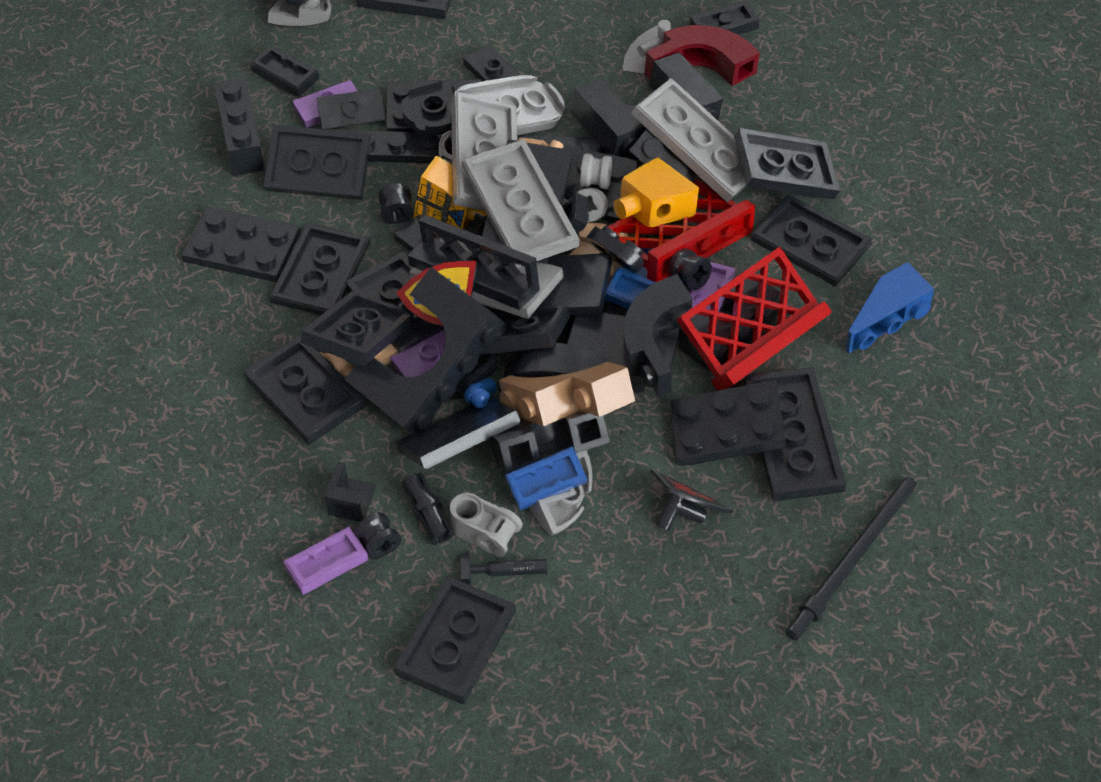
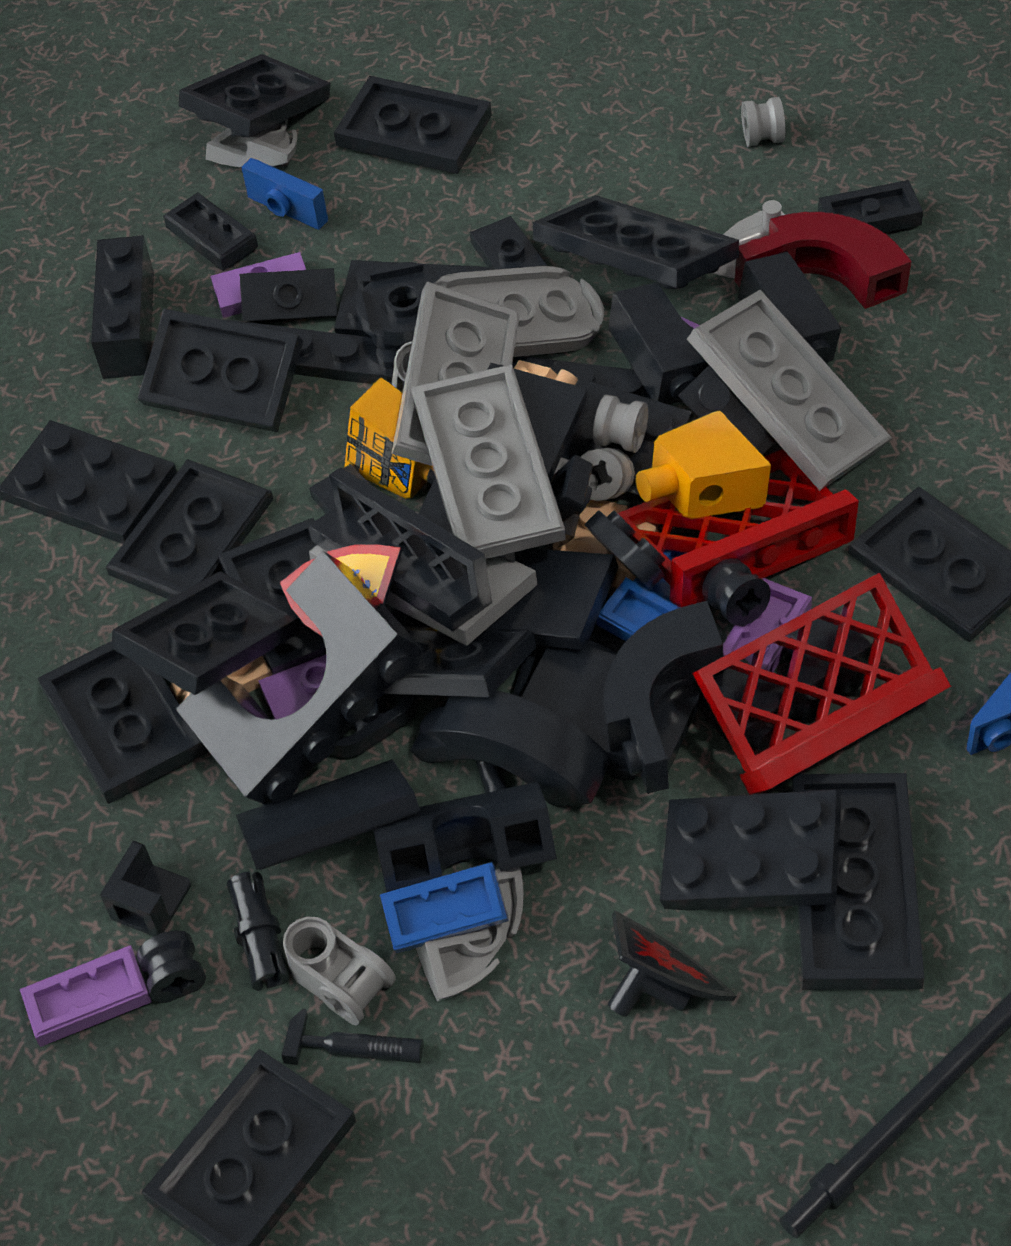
camera: 15 degrees right, 0 degrees up
(331, 41) = (285, 193): none -> blue plate
(396, 203) = (320, 443): black wheel -> none
(480, 392) = (373, 752): blue arm -> none
(555, 397) = (470, 780): medium nougat arch -> none
(578, 53) = (636, 241): none -> black plate
(786, 163) = (922, 439): black plate -> none

